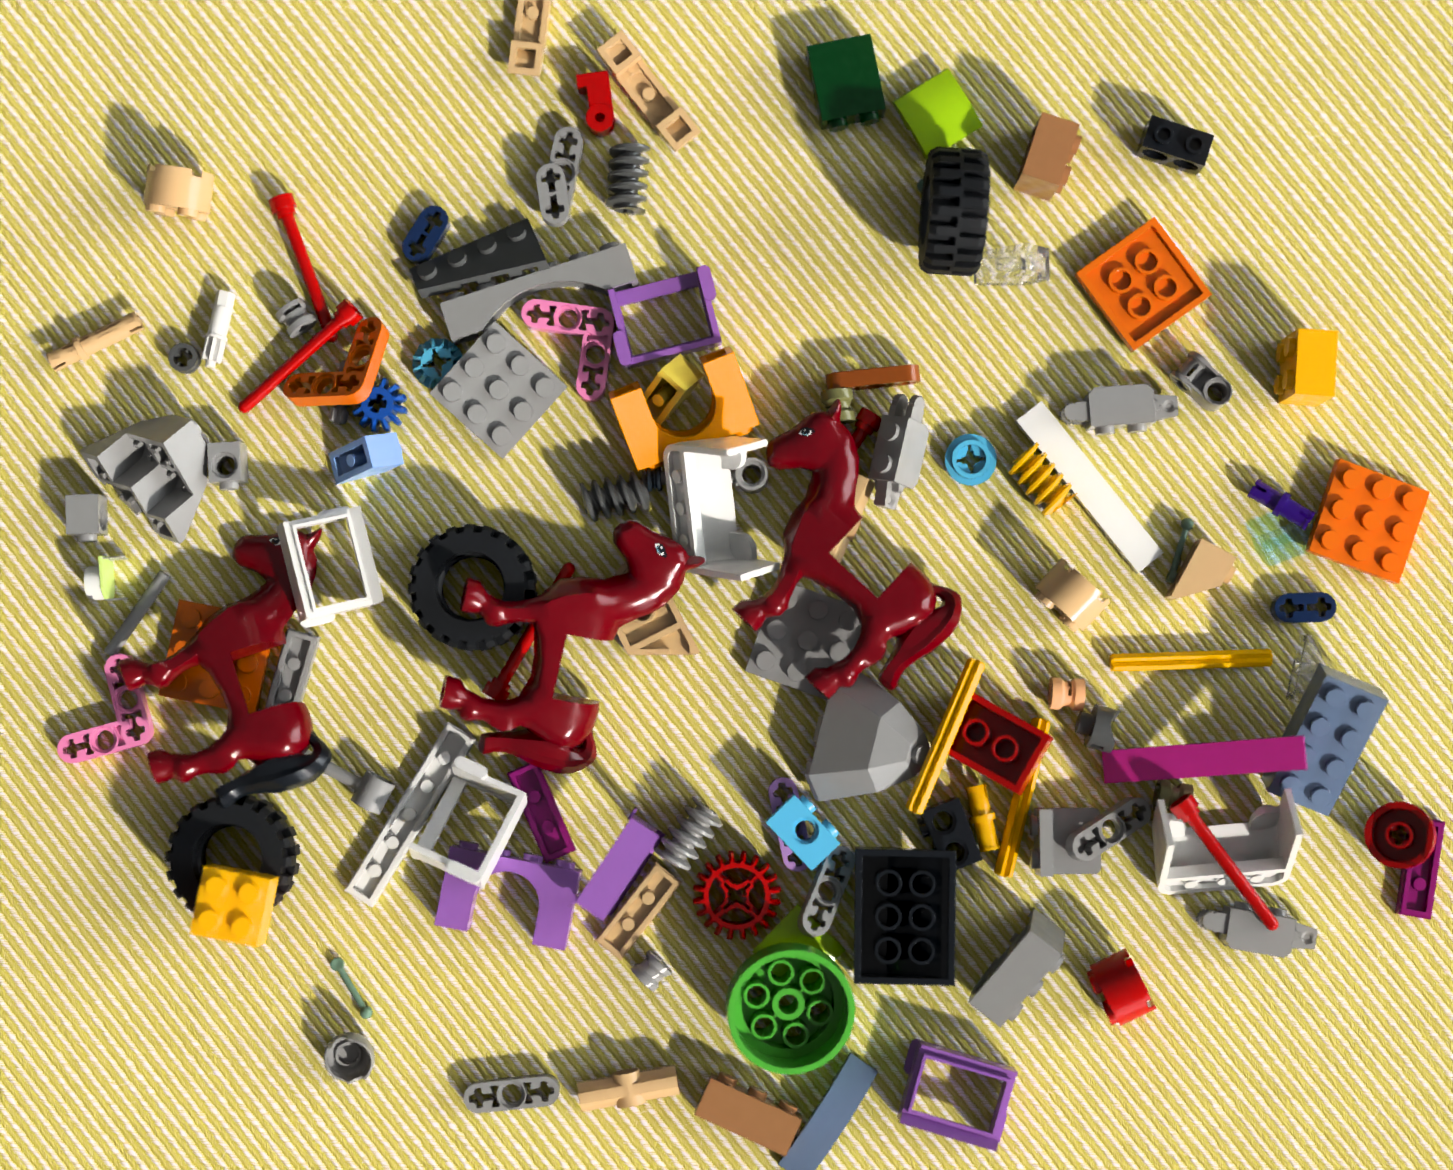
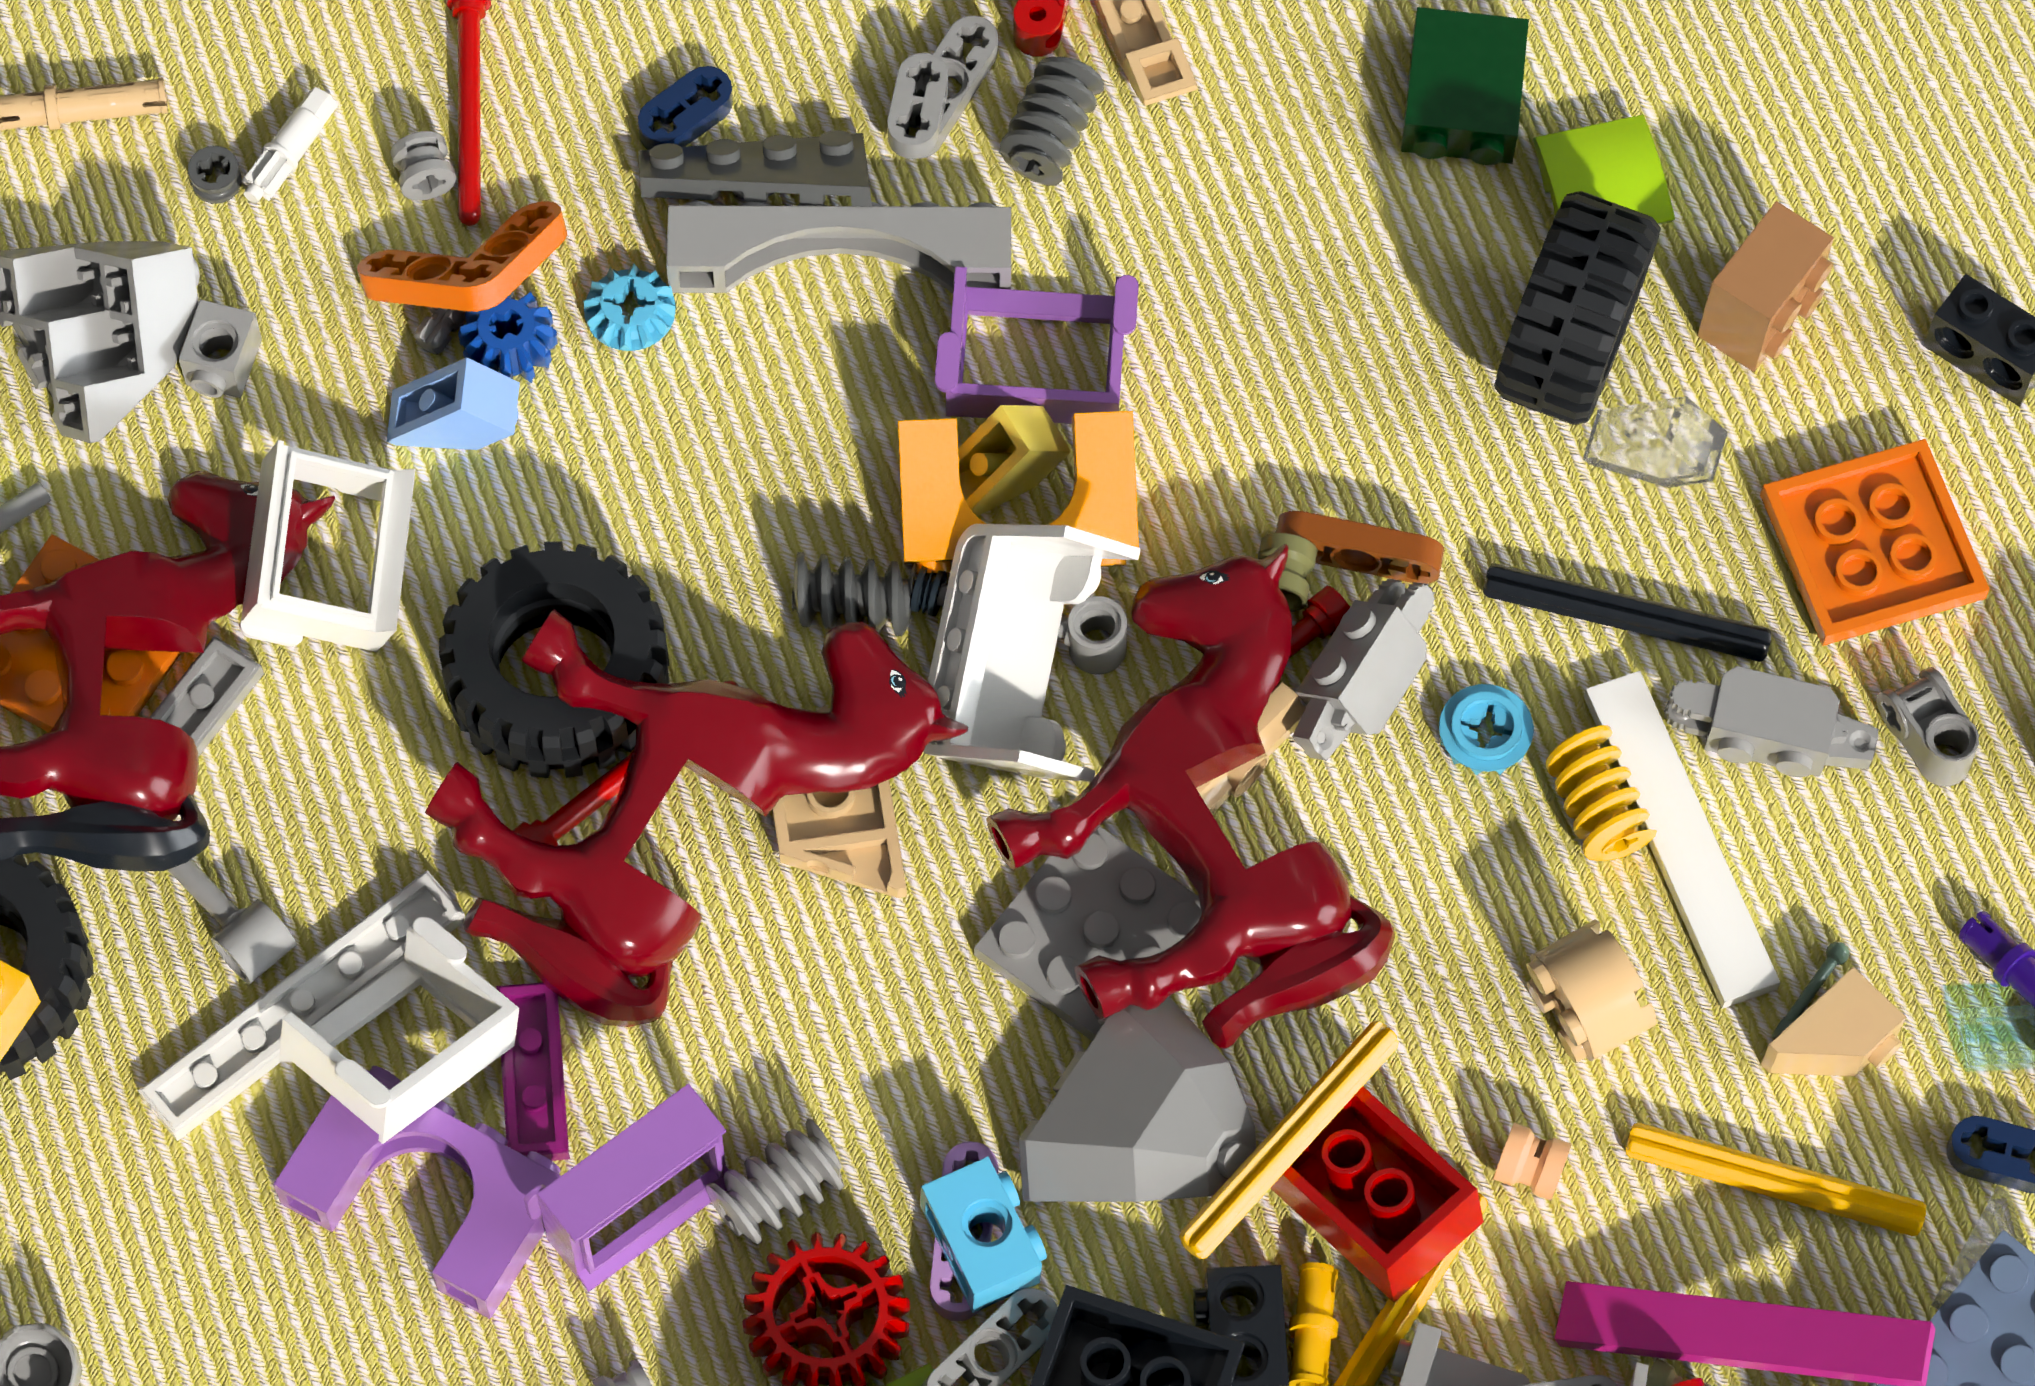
camera: 15 degrees right, 20 degrees down
(337, 964) = (76, 1218): sand green hinge -> none
(345, 316) = (504, 184): red piece -> none
(498, 389) = (715, 374): light grey plate -> none
(590, 339) = (899, 341): bright pink beam -> none
(638, 911) = (640, 1294): tan tile -> none
(1024, 367) = (1627, 612): none -> black axle
(1097, 728) = (1572, 1232): dark grey piece -> none

